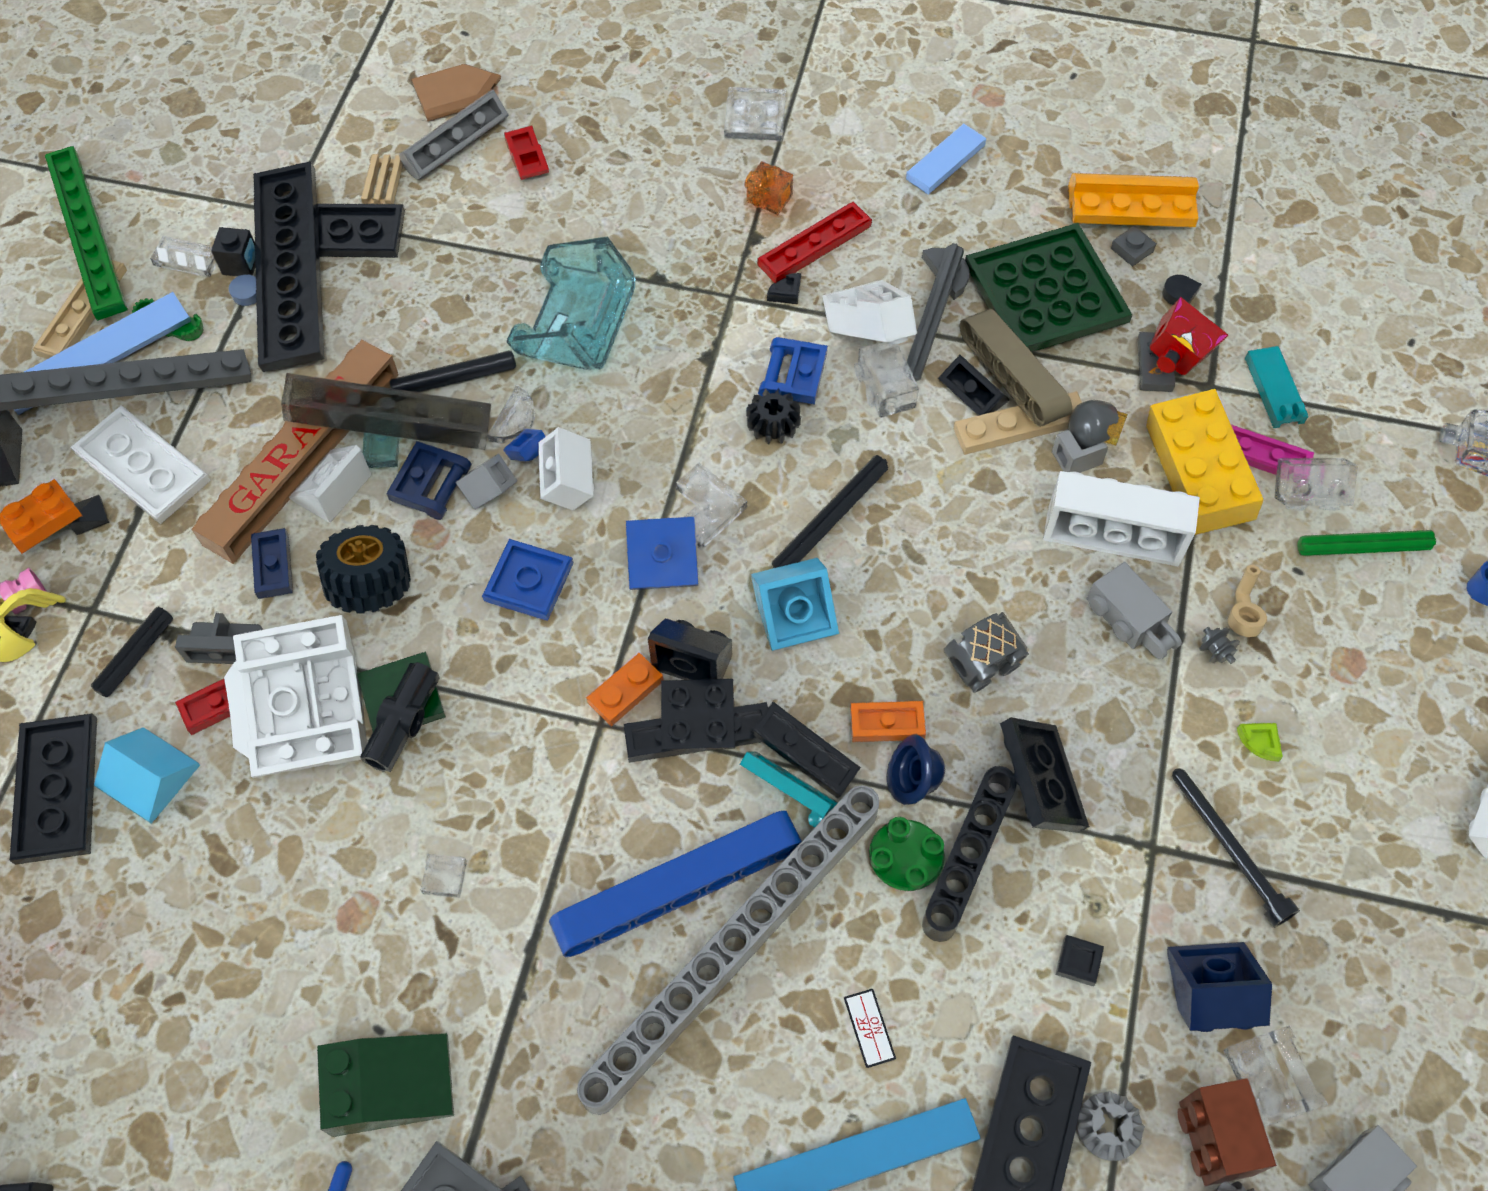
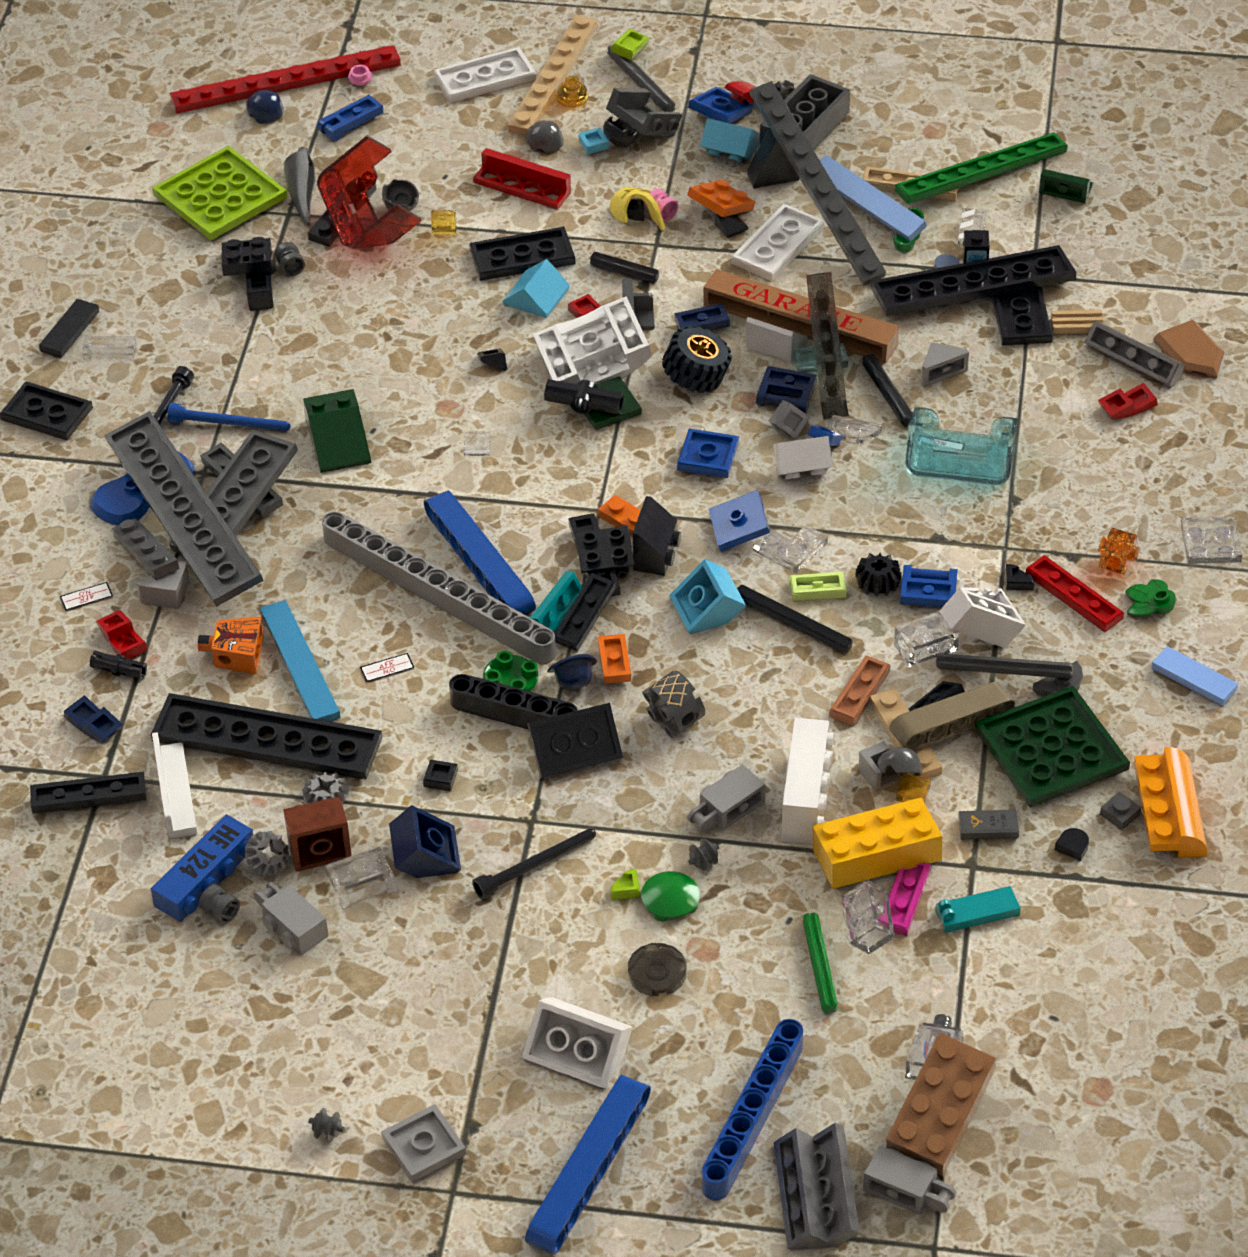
camera: 85 degrees right, 15 degrees down
(145, 158) = (1065, 186): none -> dark green panel
(271, 842) = (493, 357): none -> black slope
(422, 314) = (943, 362): none -> light grey slope
(776, 508) = (818, 589): none -> yellowish green tile
(830, 179) = (1150, 598): none -> green plate
(950, 460) = (857, 692): none -> nougat tile
(1184, 338) = (1003, 829): red torso -> none
(1246, 617) = (739, 874): tan plate -> none
(1276, 690) = (670, 895): none -> green dish
(1392, 715) = (657, 969): none -> clear smoke tile

